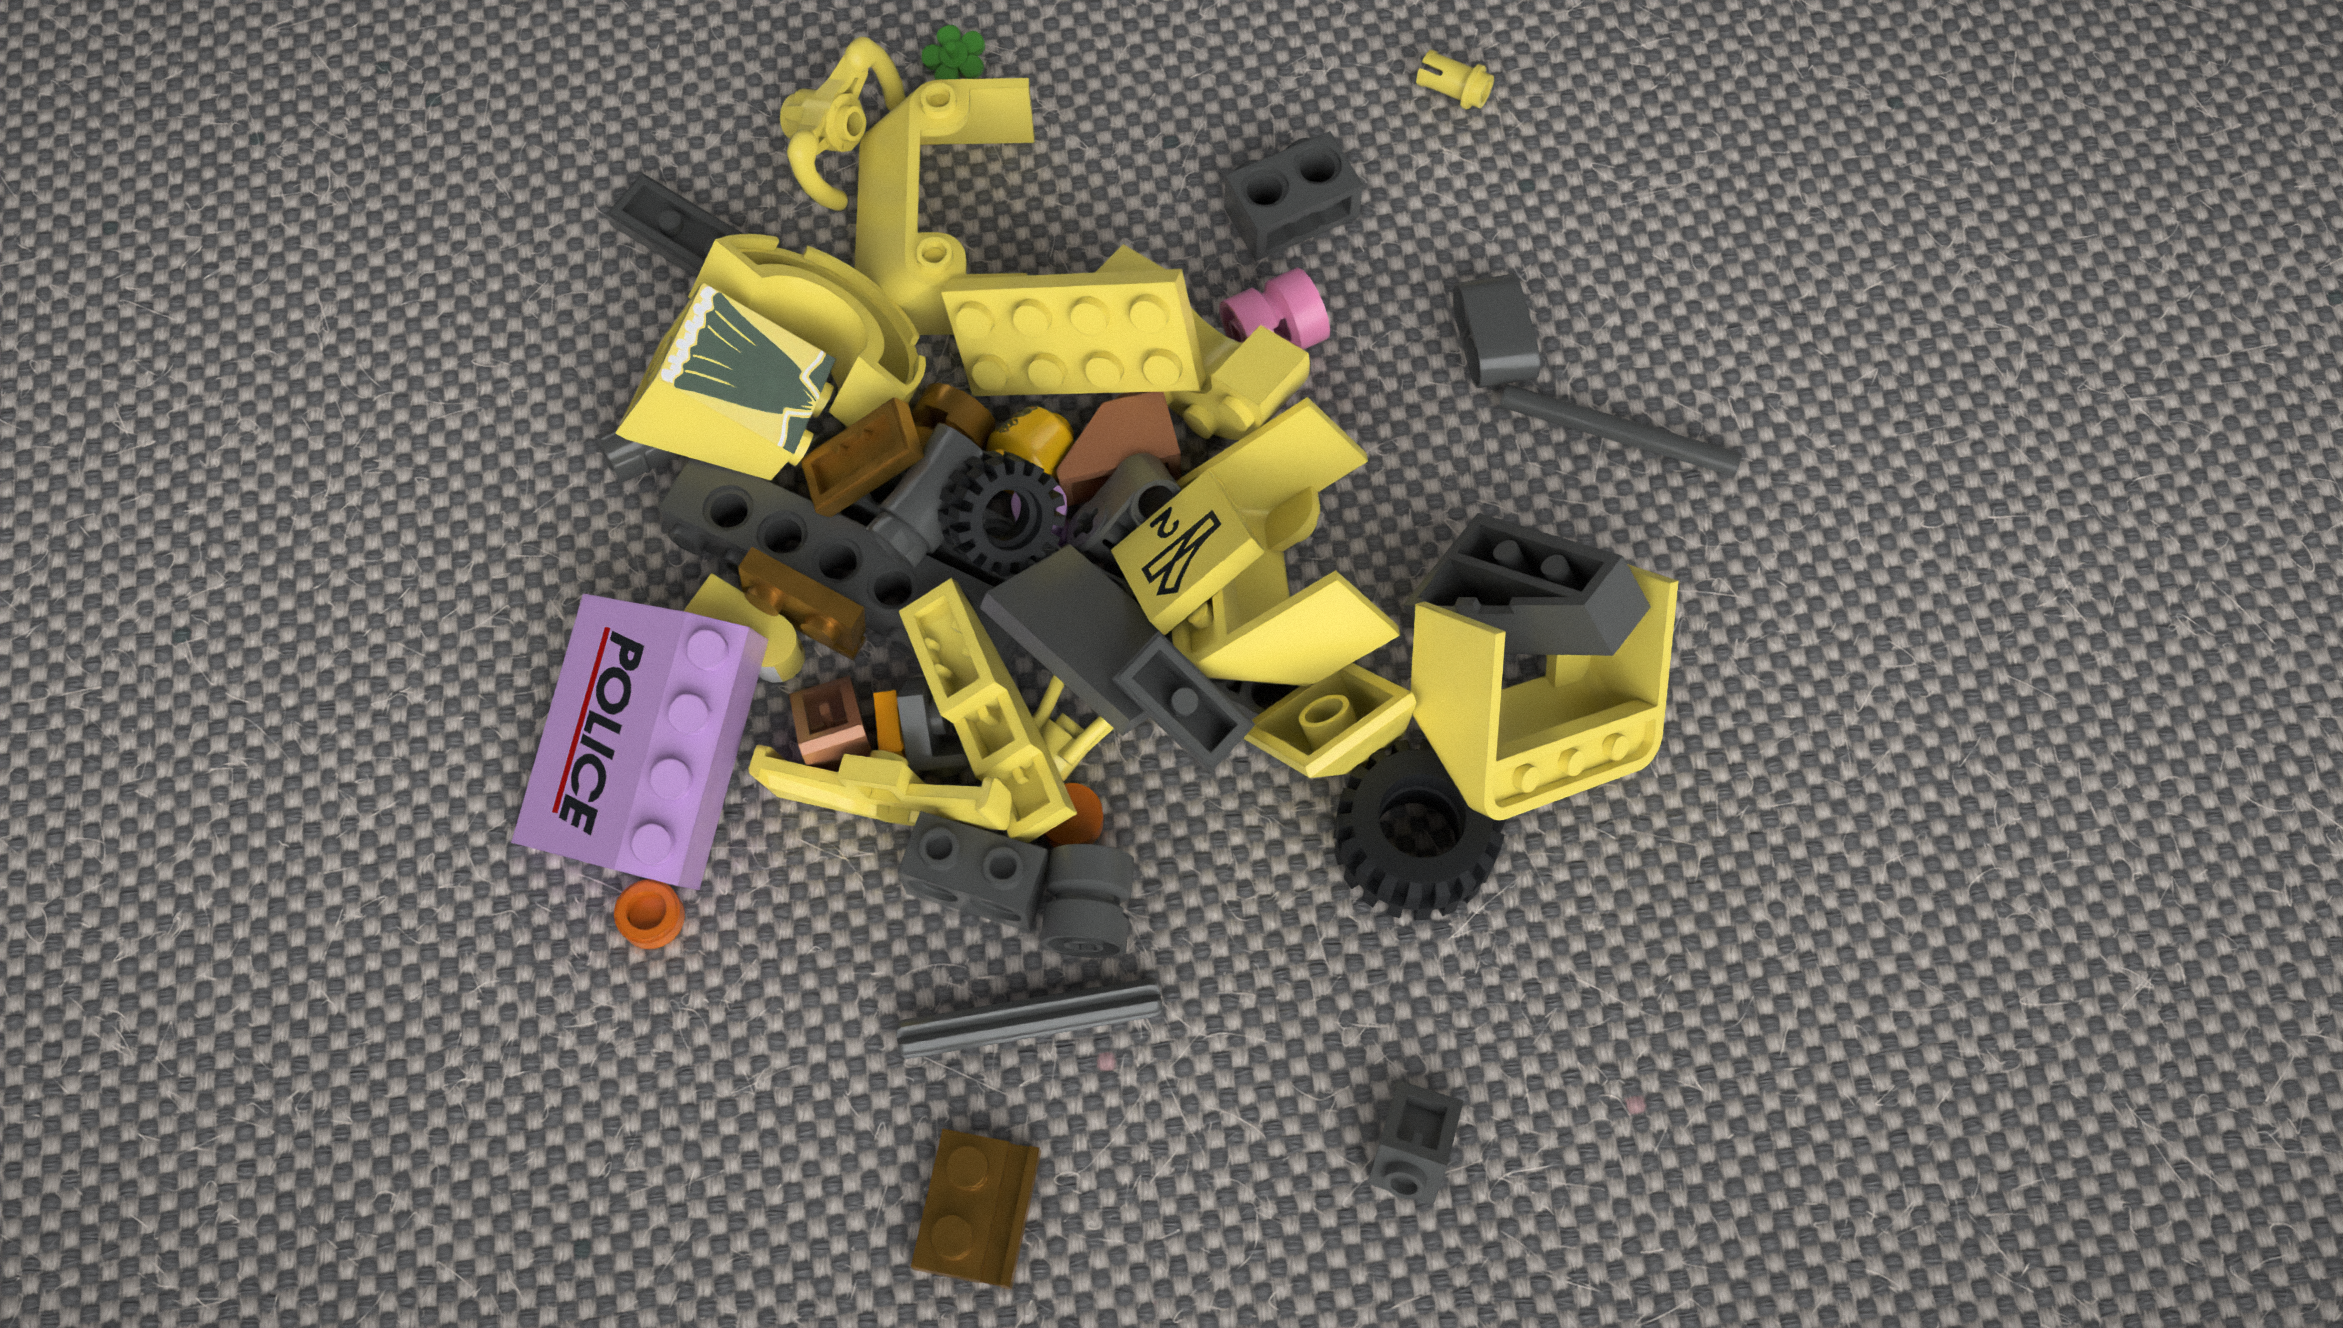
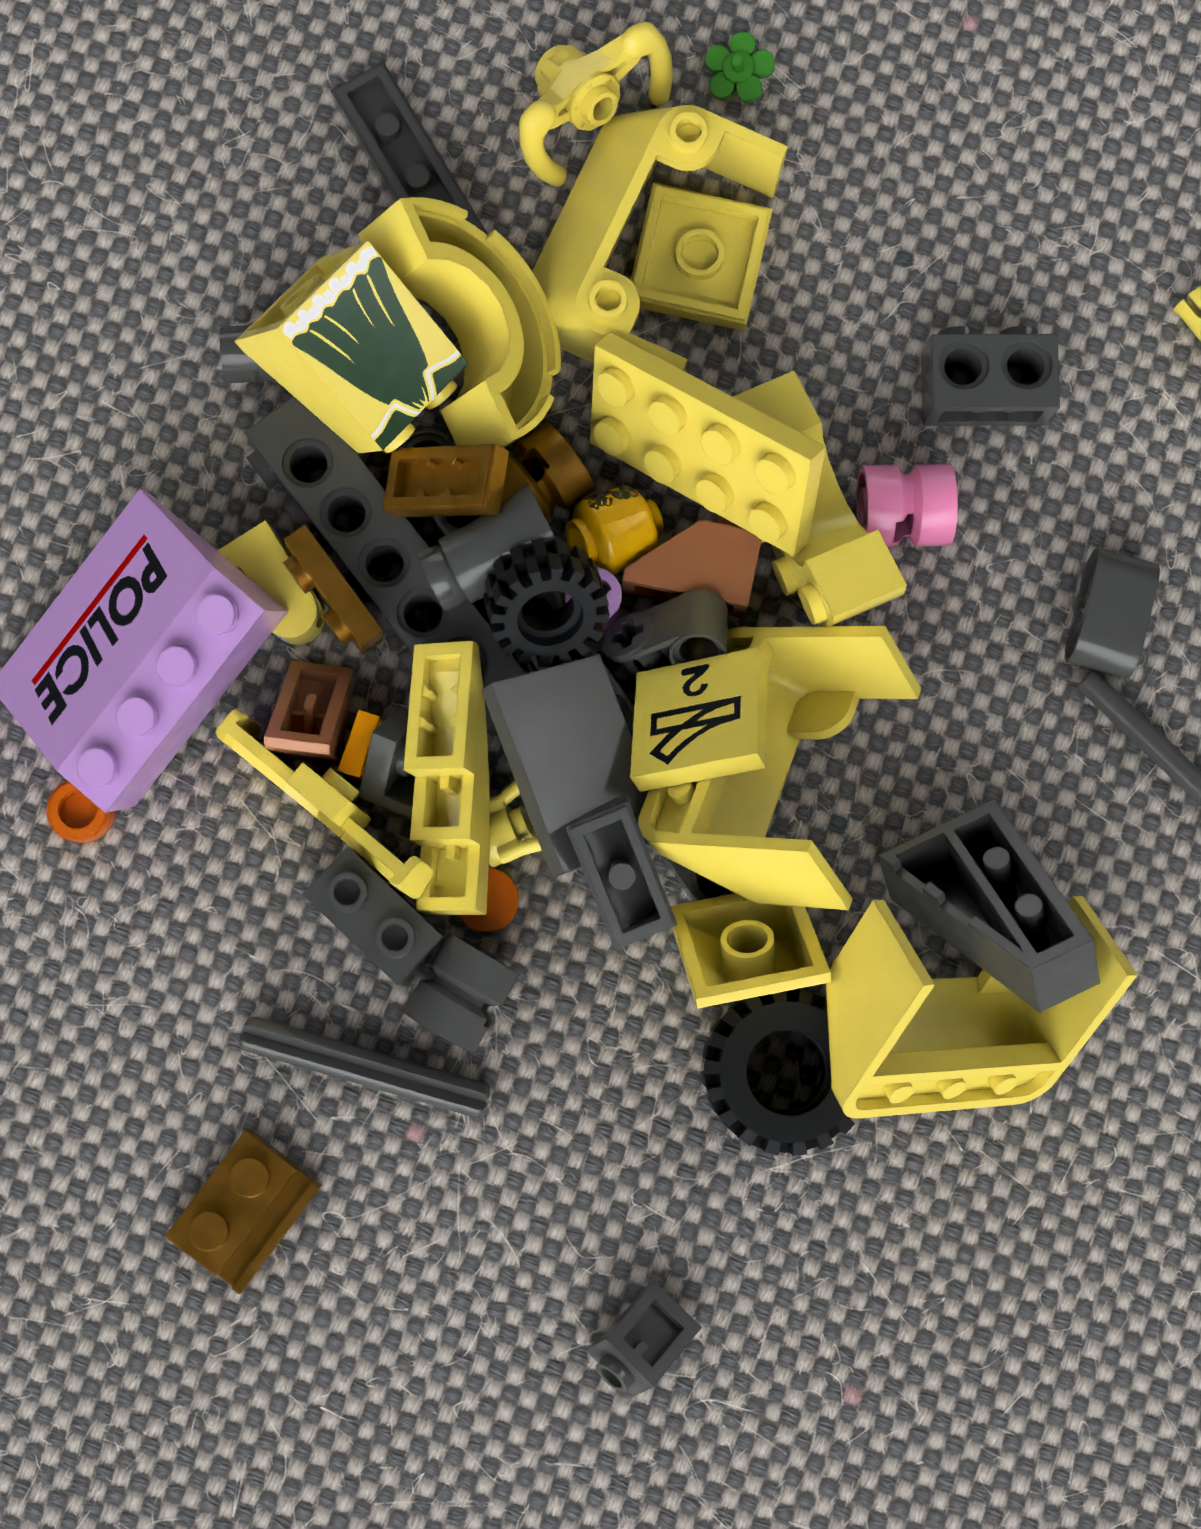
camera: 20 degrees right, 15 degrees up
(997, 208) = (700, 256): none -> light yellow tile

